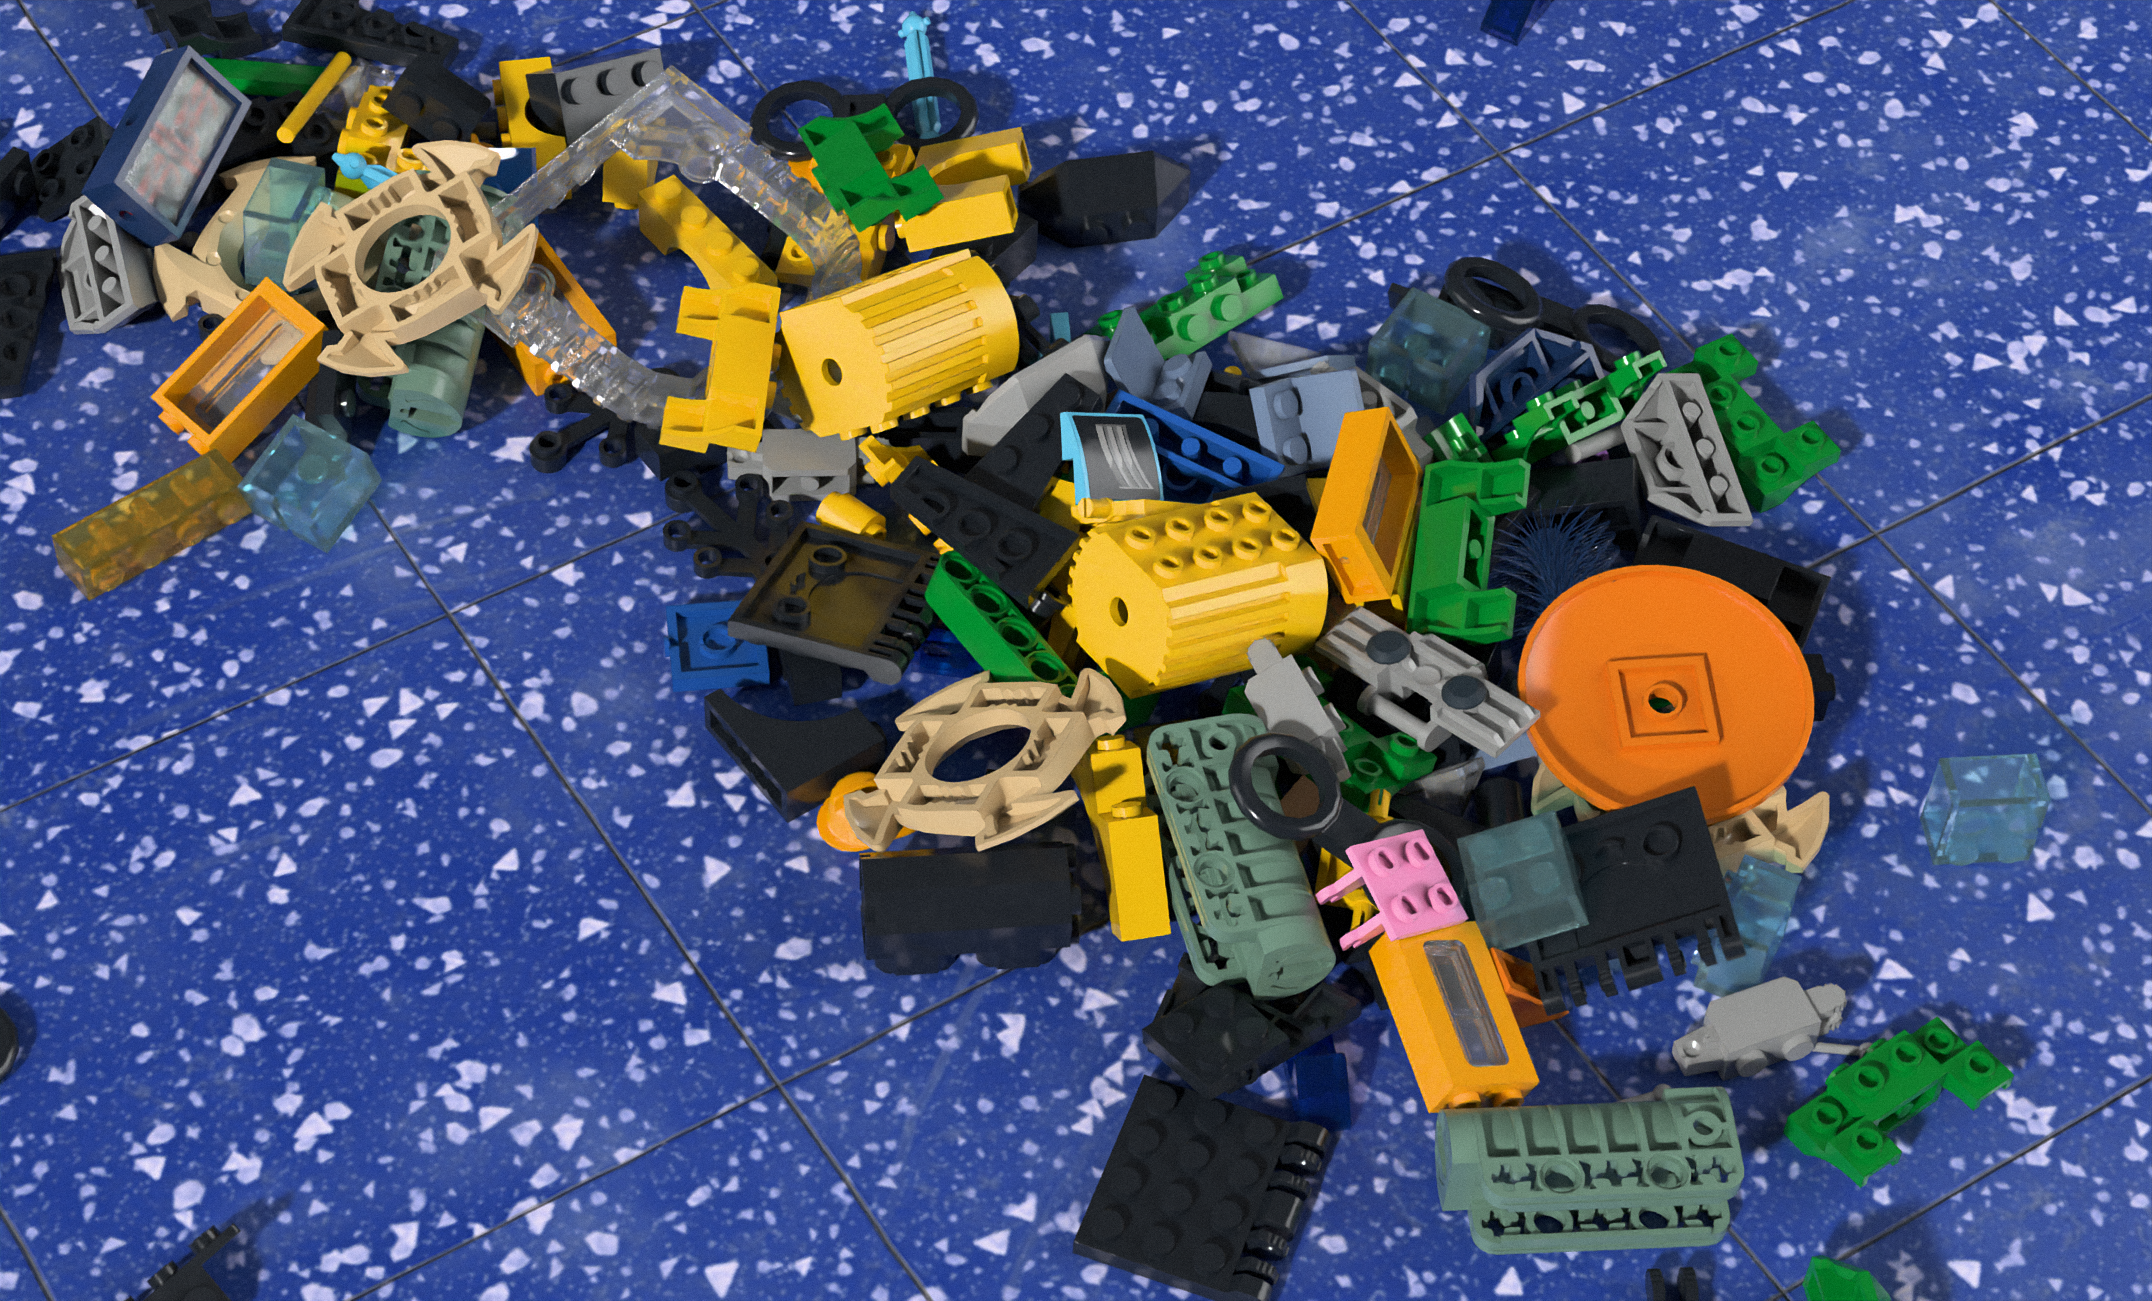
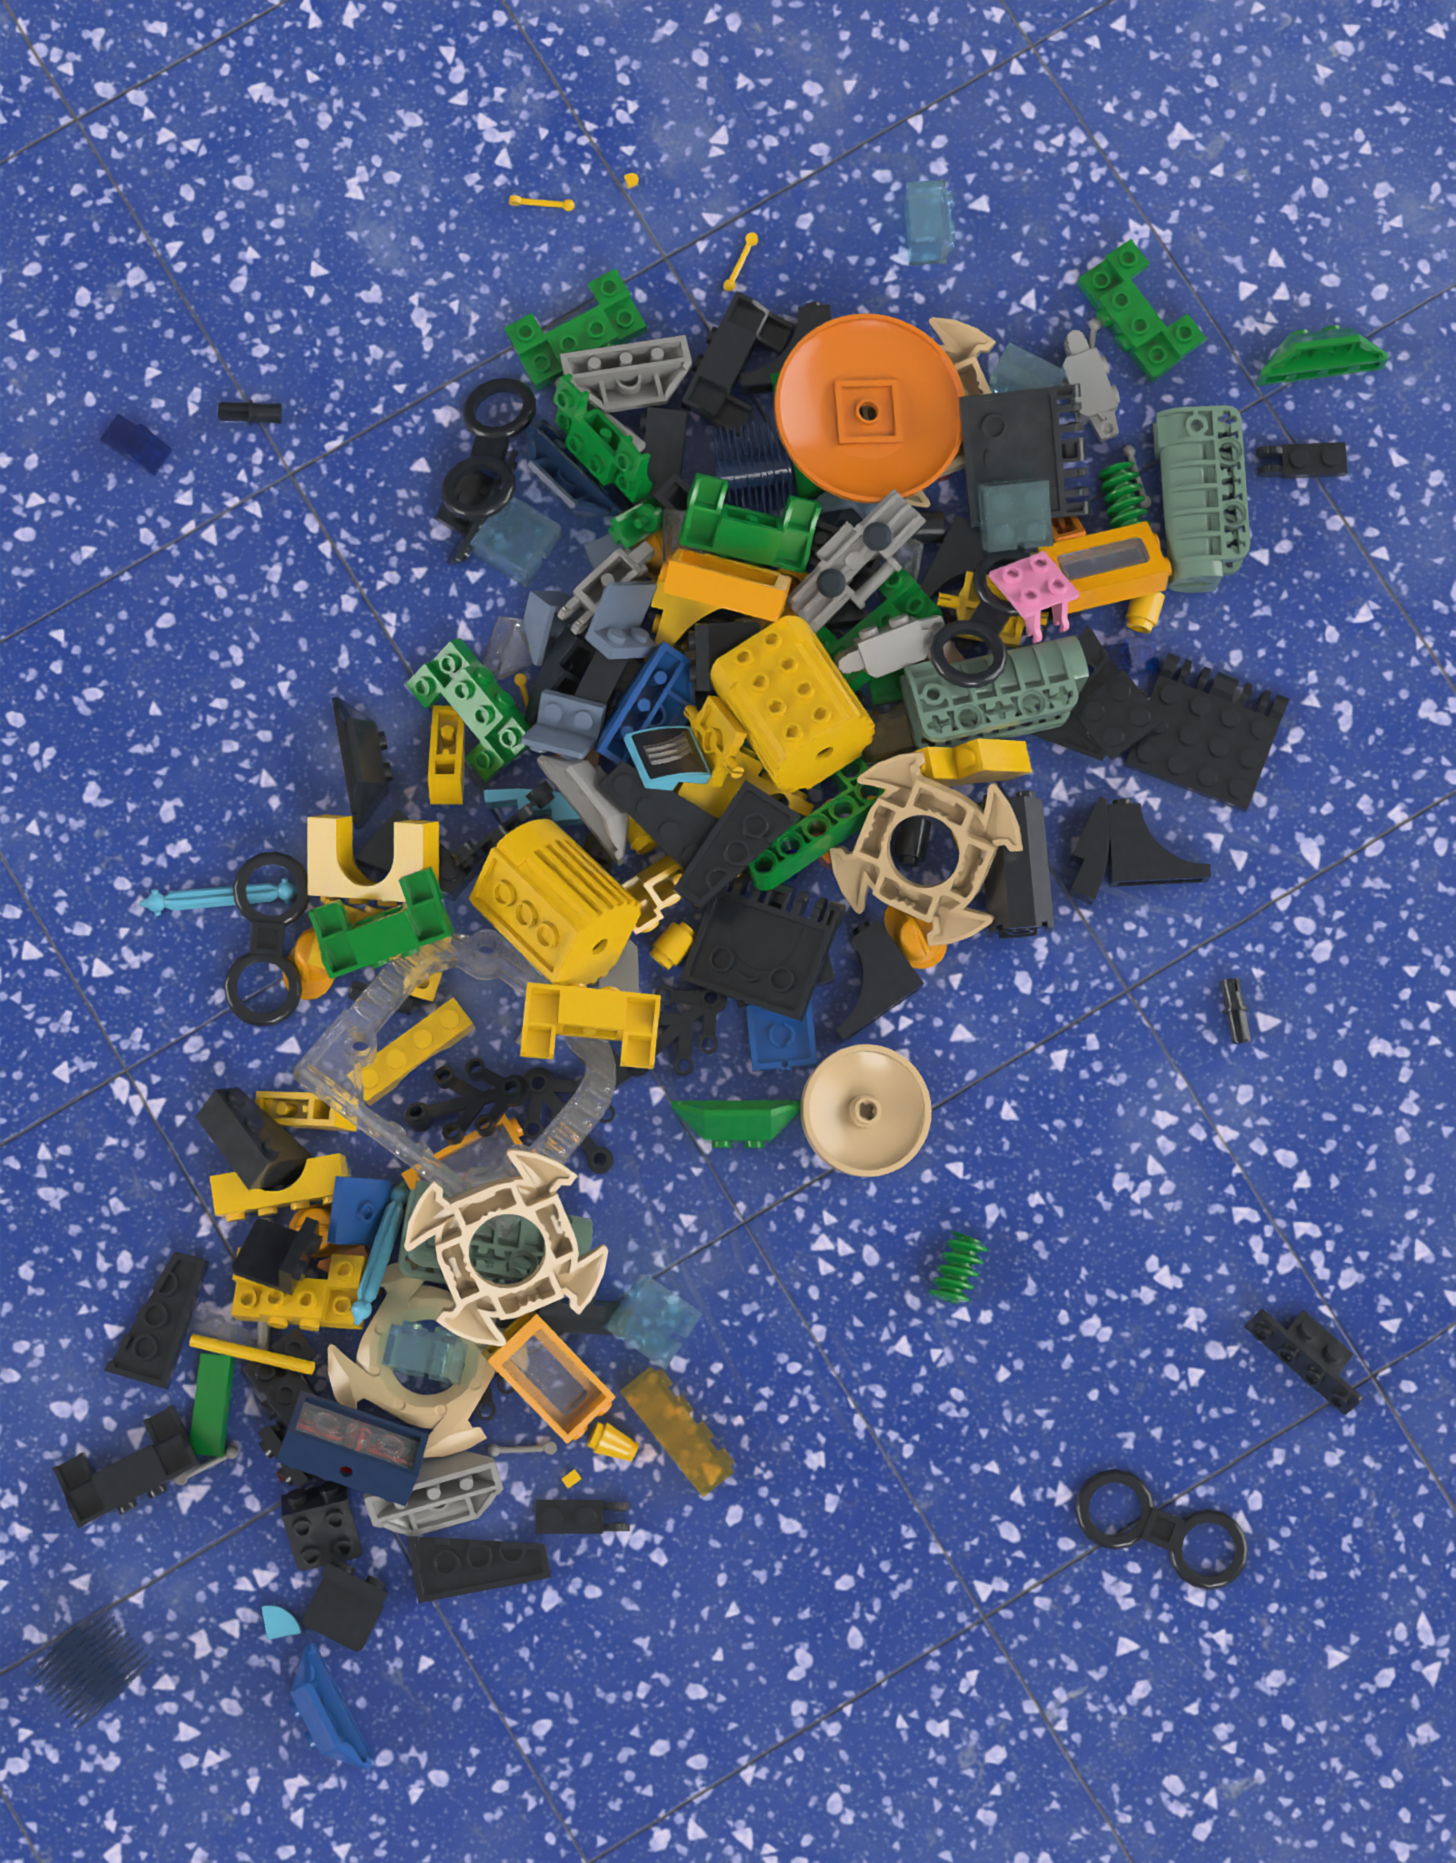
camera: 85 degrees left, 30 degrees up
(53, 428) = (577, 1516): none -> black hinge
(107, 424) = (571, 1478): none -> yellow piece
(149, 456) = (611, 1442): none -> yellow cone
(158, 347) = (494, 1450): none -> light grey hinge
(349, 846) = (958, 1269): none -> green piece
(592, 589) = (737, 1120): none -> green wedge
(596, 727) = (865, 1110): none -> tan dish
(642, 341) = (471, 1102): none -> black plant
(737, 1219) = (1235, 1010): none -> black axle
(996, 1024) = (1092, 854): none -> black slope
(997, 1081) = (1138, 858): none -> black arch
(1099, 282) = (446, 756): none -> yellow slope
(1396, 1101) = (1144, 612): none -> yellow brick
(1576, 107) = (250, 412): none -> black axle
(1583, 1067) = (1121, 495): none -> green piece
(1920, 628) = (751, 240): none -> yellow hinge
(1930, 423) = (567, 205): none -> yellow hinge
(1983, 494) = (631, 180): none -> yellow piece

